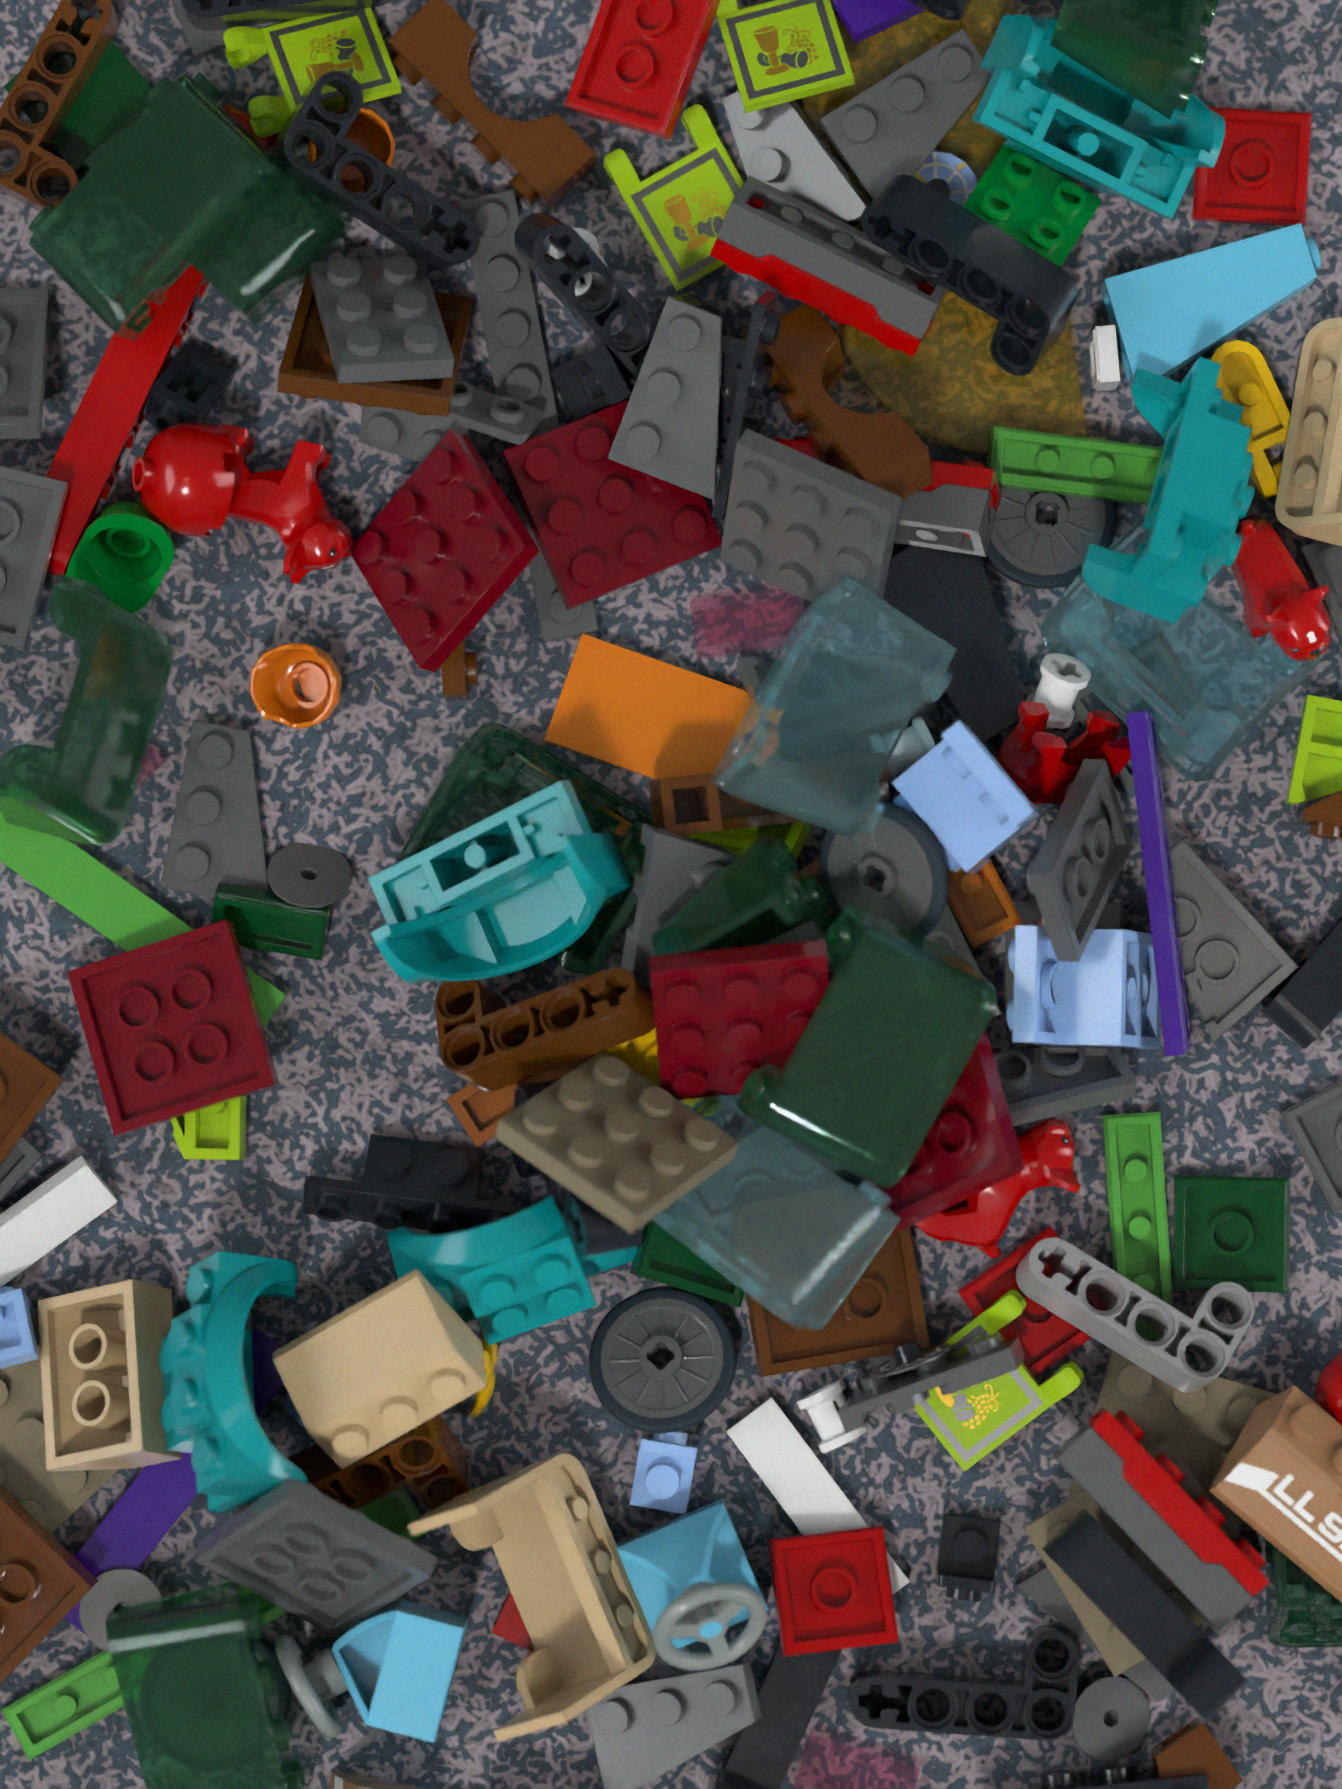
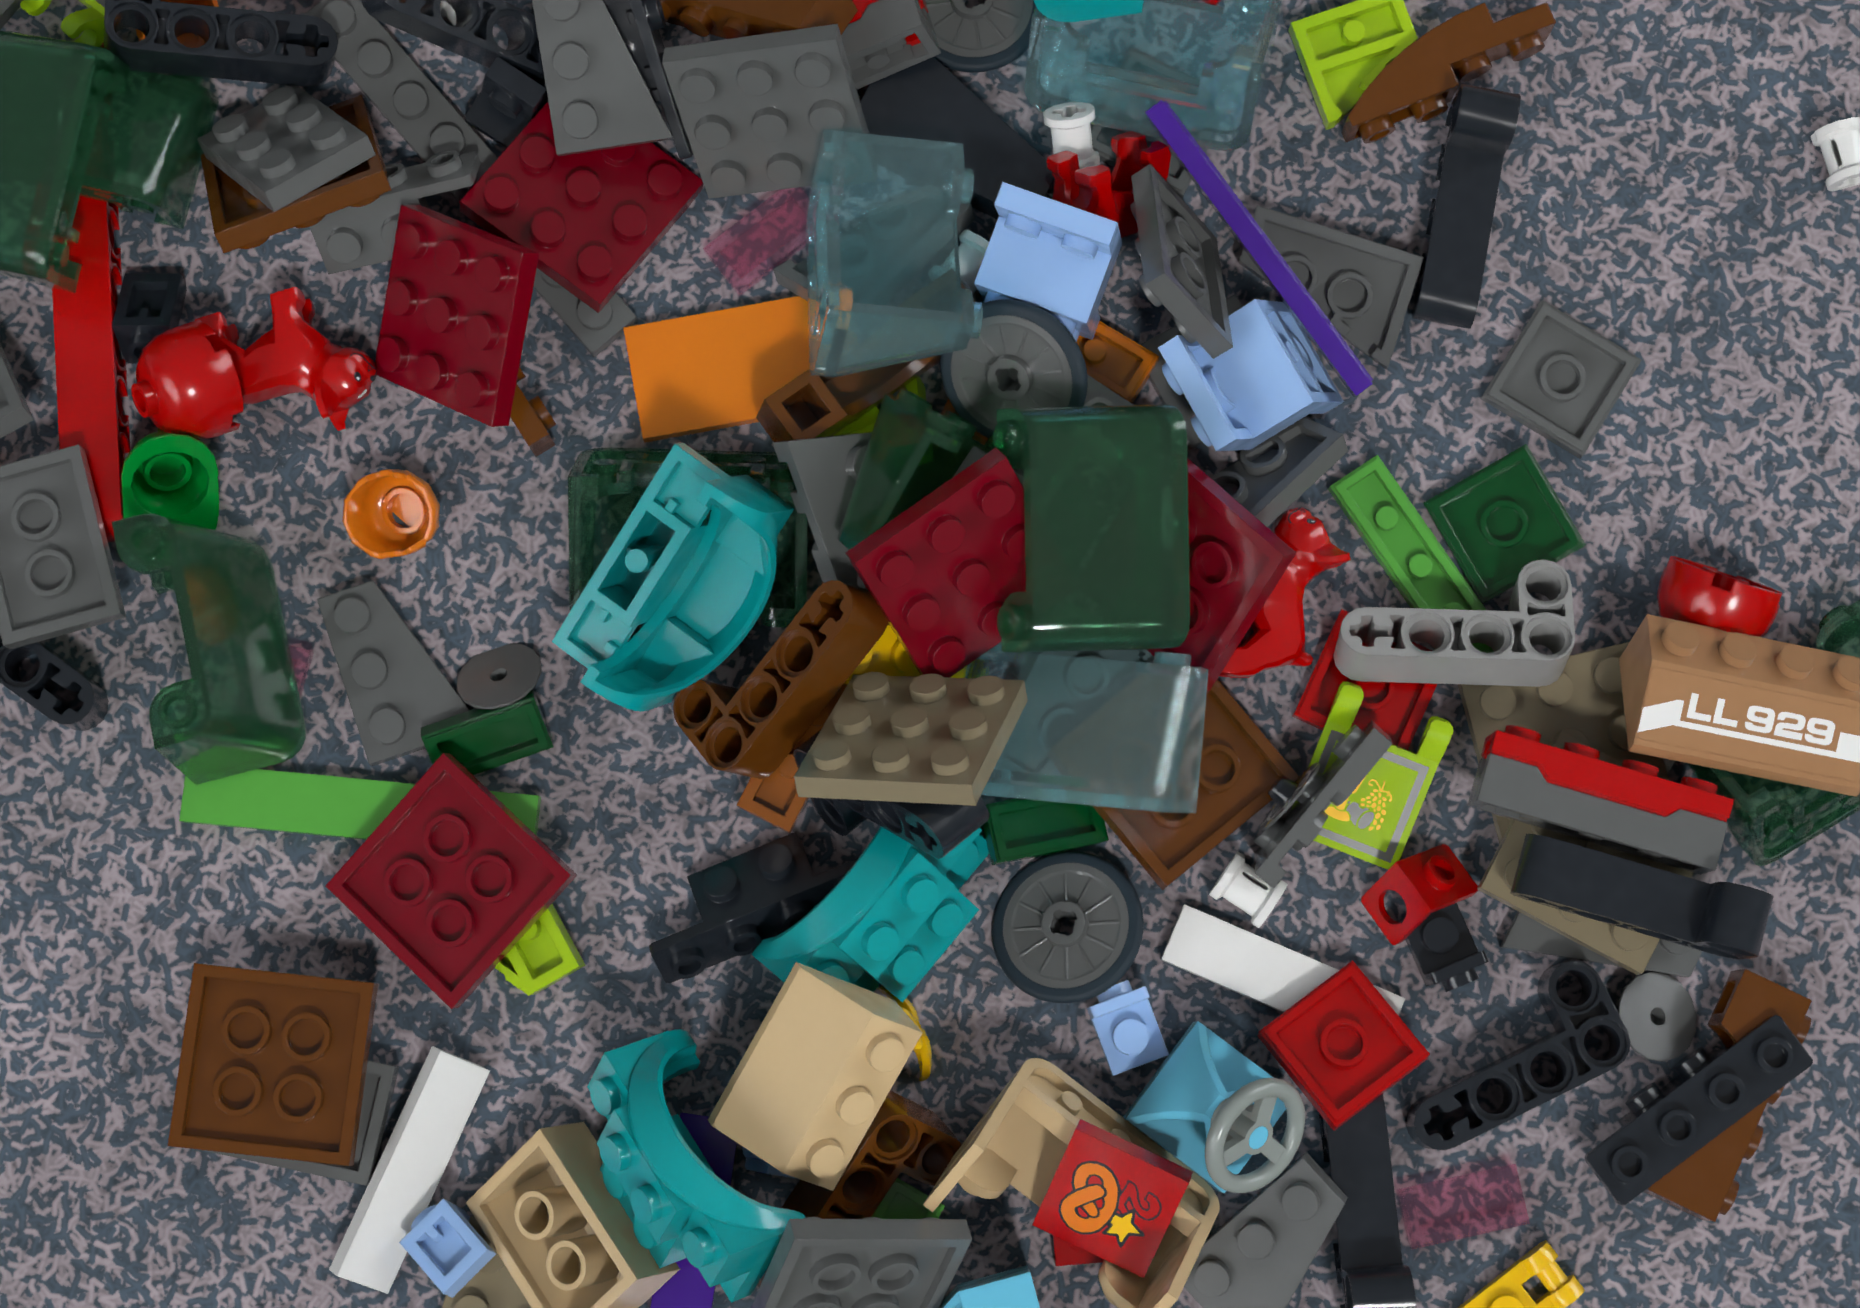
camera: 30 degrees left, 5 degrees down
(566, 1607) = (1112, 1198): none -> red tile
(981, 1499) = (1426, 885): none -> red bracket

